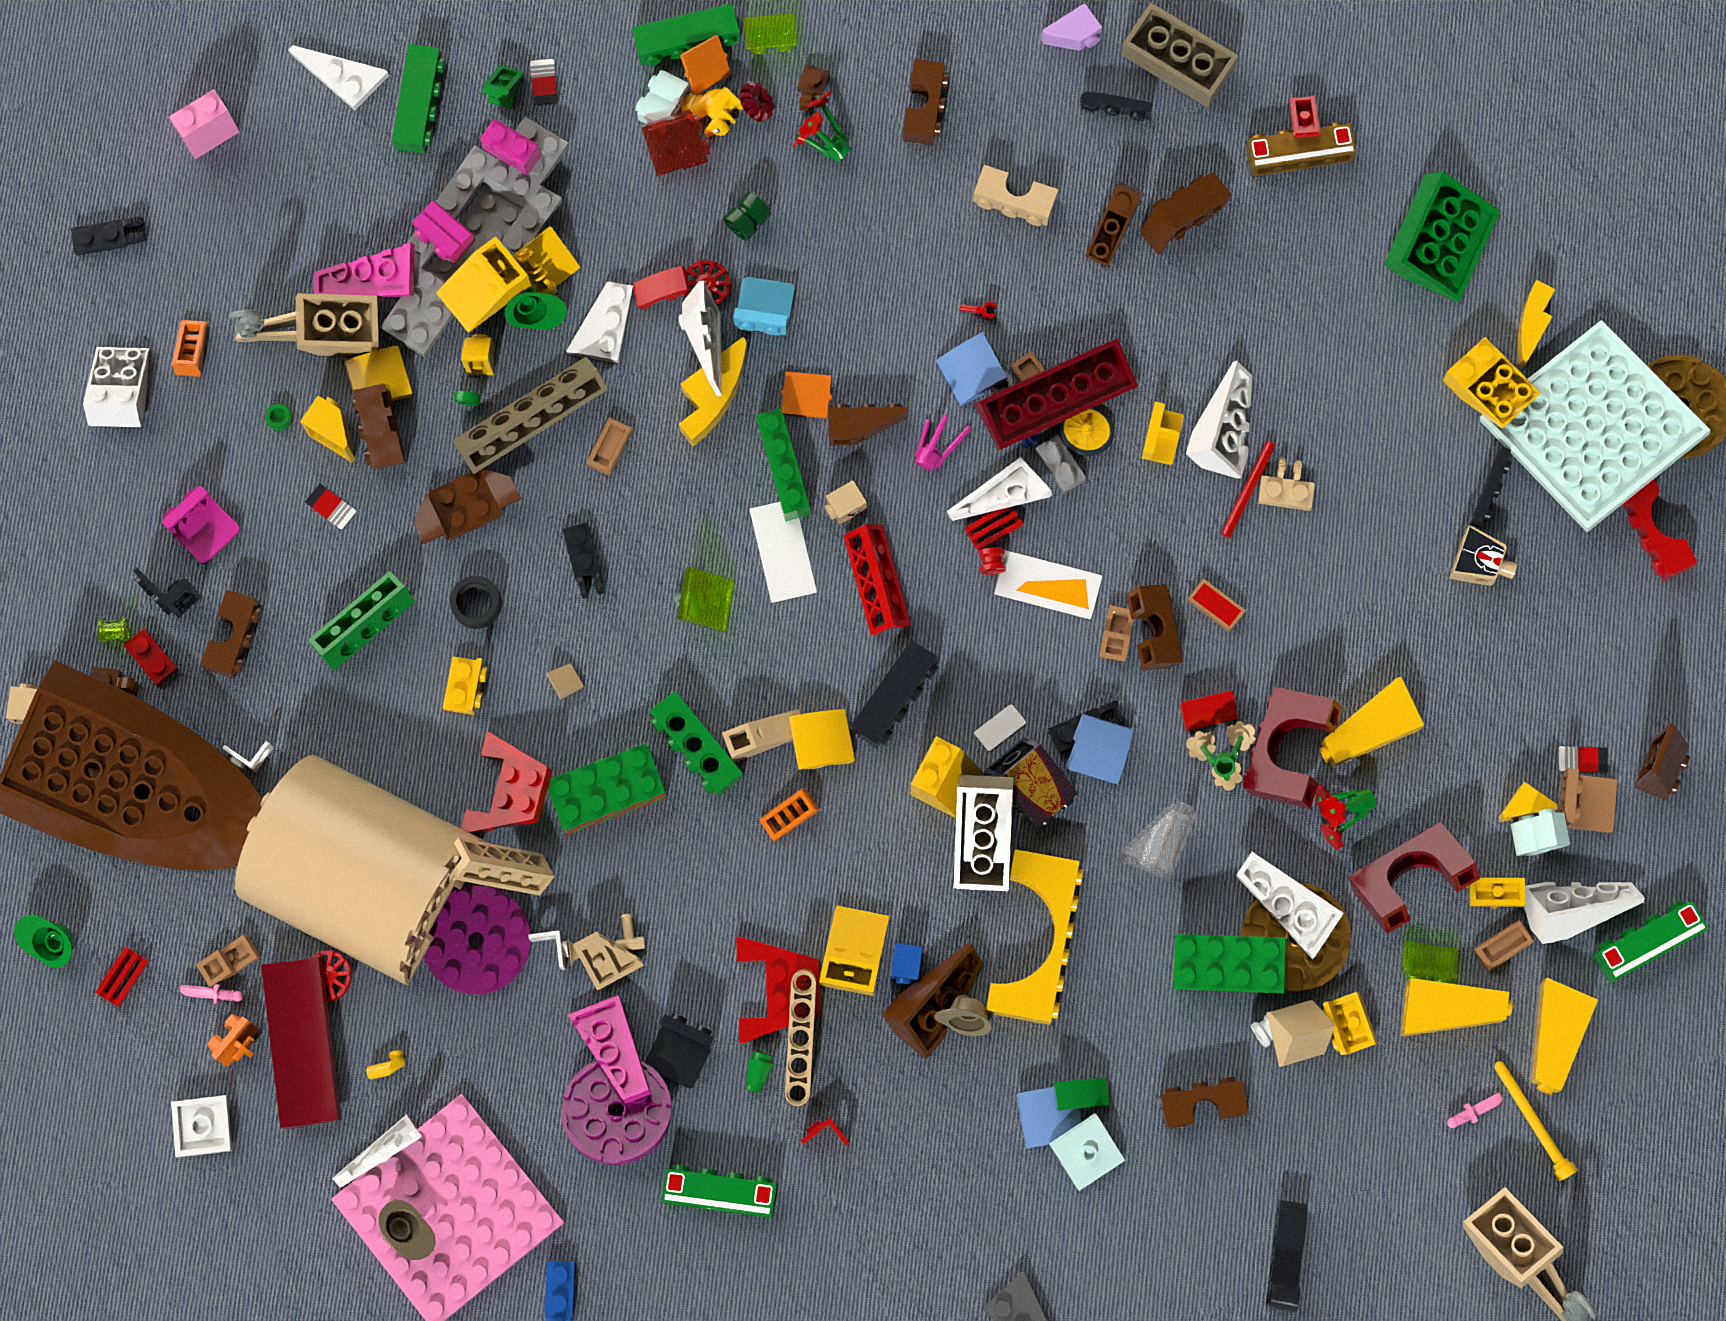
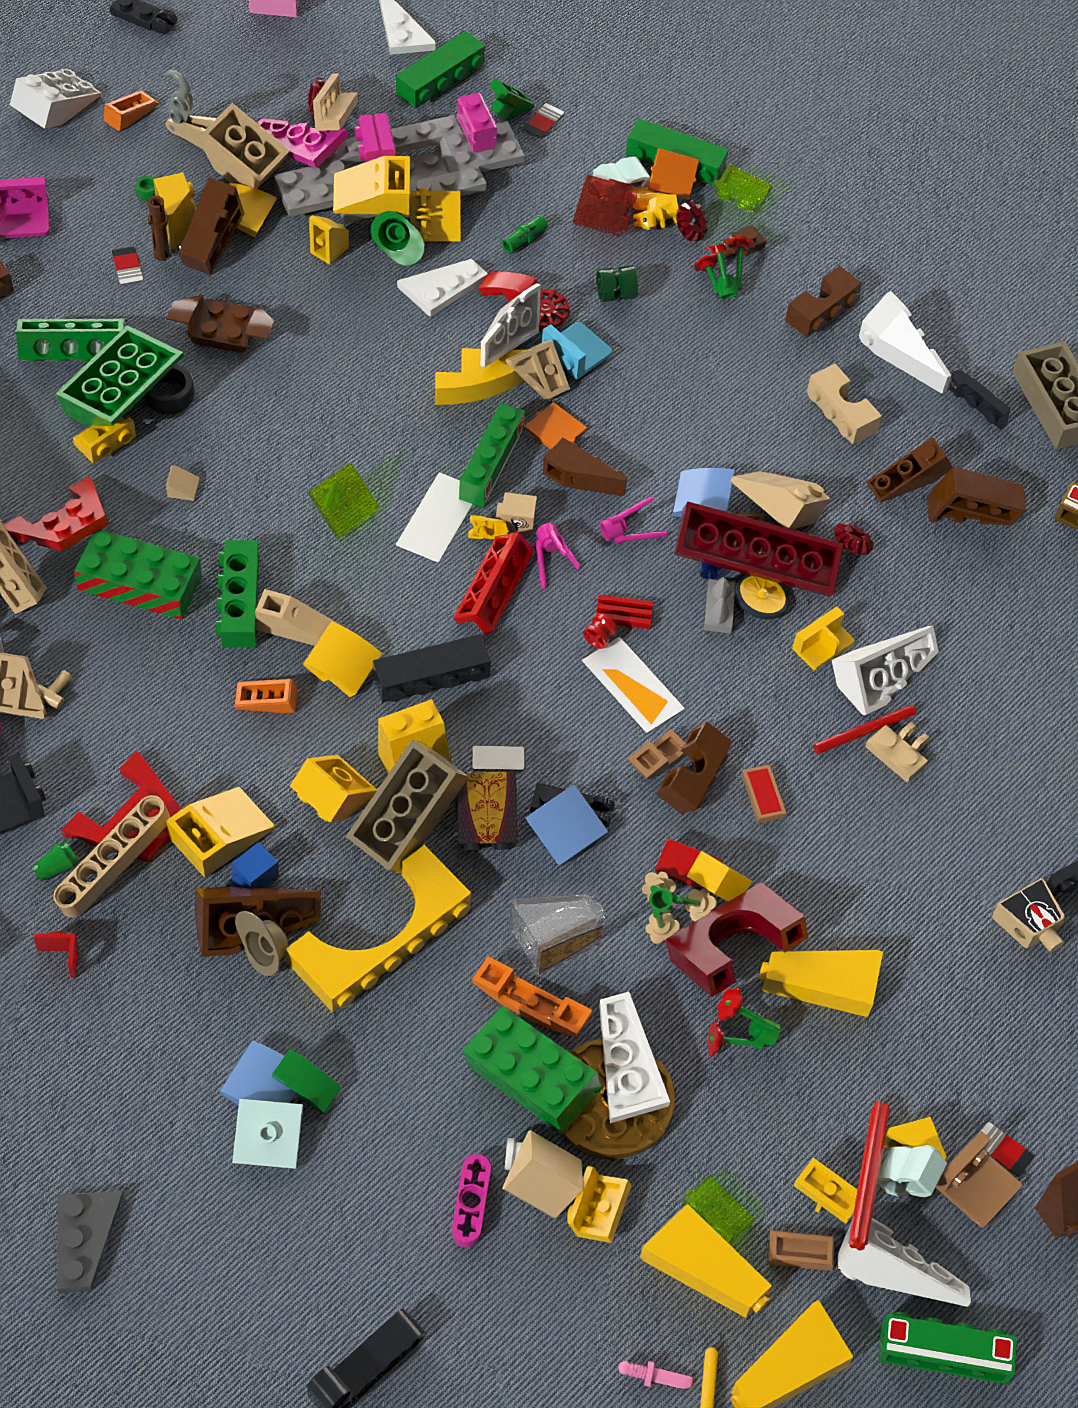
camera: 30 degrees right, 20 degrees down
(342, 215) = (314, 89): none -> dark red gear
(342, 462) = (158, 222): none -> reddish brown pin
(374, 219) = (332, 106): none -> tan fence
(442, 632) = (117, 378): none -> green slope
(467, 398) = (294, 260): green tile -> none
(530, 415) = (328, 297): dark tan brick -> none
(583, 556) = (278, 416): black hinge -> none
(609, 446) = (370, 361): medium nougat tile -> none
(628, 220) = (535, 226): none -> green pin
(758, 353) = (541, 369): none -> tan wing
(830, 536) = (487, 527): none -> yellow piece
(889, 506) = (551, 541): none -> dark pink plant
(905, 851) = (332, 787): none -> yellow slope
(980, 310) = (748, 462): red hand -> none
(1005, 98) = (896, 340): none -> white wedge
(1009, 488) = (659, 590): white wing -> none
(1035, 328) = (786, 499): none -> tan slope
(1074, 30) = (985, 330): lavender slope -> none
(1124, 329) = (853, 538): none -> dark red gear
(1183, 906) = (530, 1001): none -> orange slope
(1227, 1098) = (386, 1157): reddish brown arch -> none
(1240, 707) = (718, 877): none -> yellow slope
(1242, 1072) = (459, 1220): none -> dark pink beam
(1431, 849) = (796, 1113): arch -> none
(1516, 860) = (869, 1176): none -> red axle

